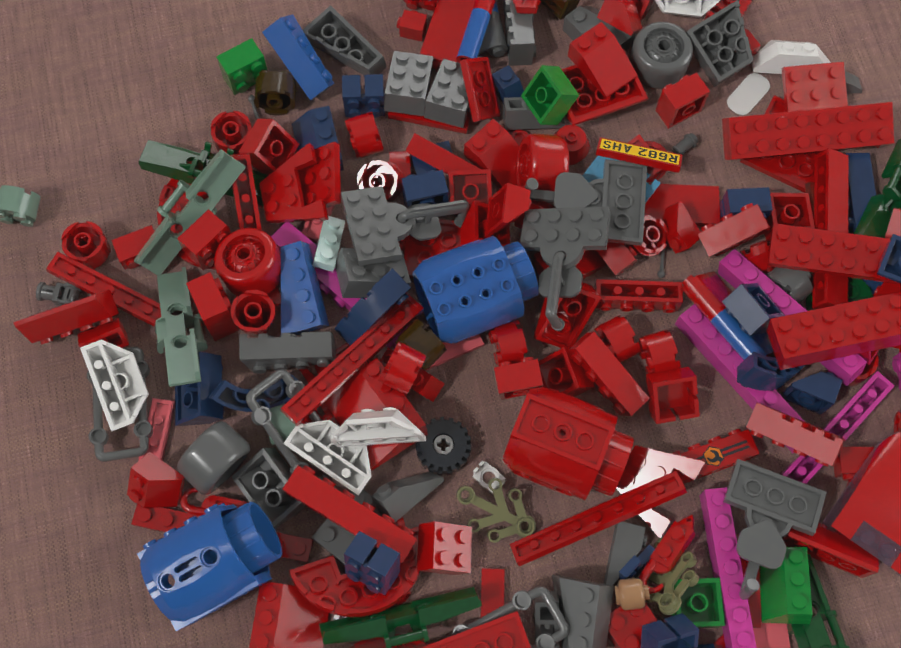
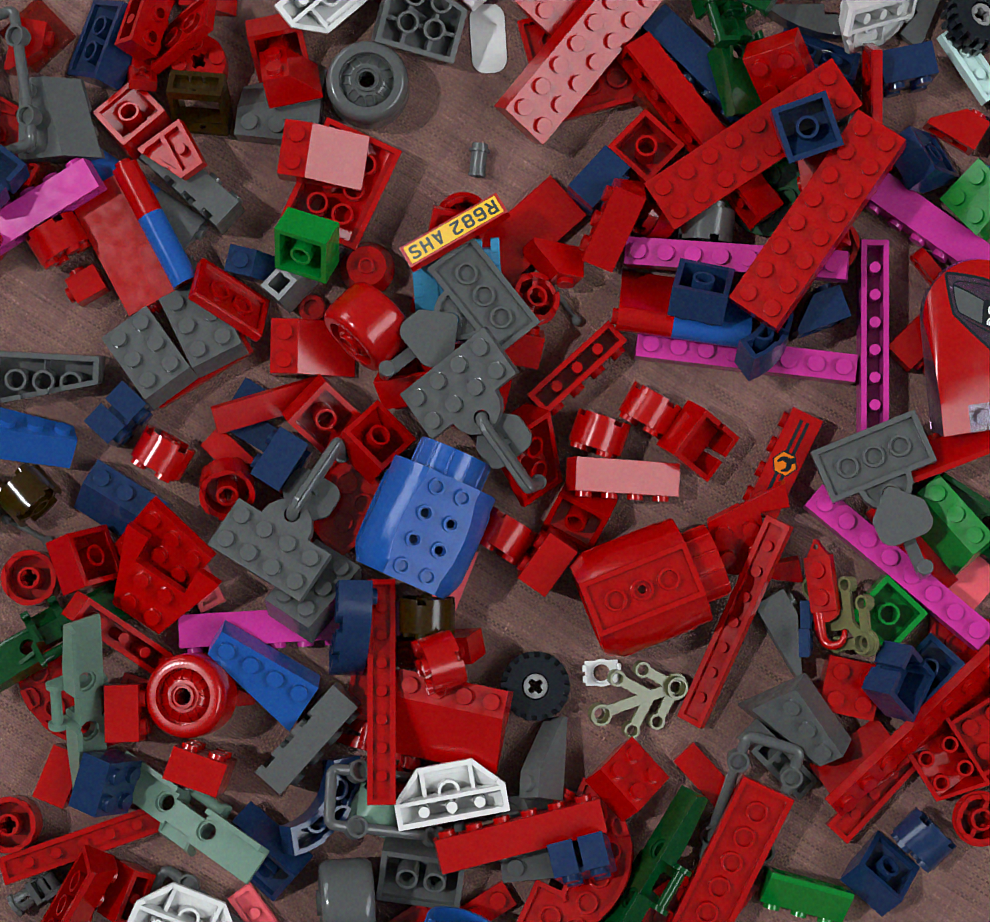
camera: 40 degrees left, 15 degrees up
(155, 266) = (105, 783): none -> dark blue brick
(253, 312) = (234, 741): red cone -> none
(329, 243) = (242, 599): light aqua plate -> none
(376, 428) = (472, 737): white wedge -> none
(506, 207) = (384, 414): red slope -> none
(631, 594) = (826, 664): medium nougat head -> none
(682, 100) = (434, 118): red brick -> none
(795, 433) = (843, 379): wedge -> none

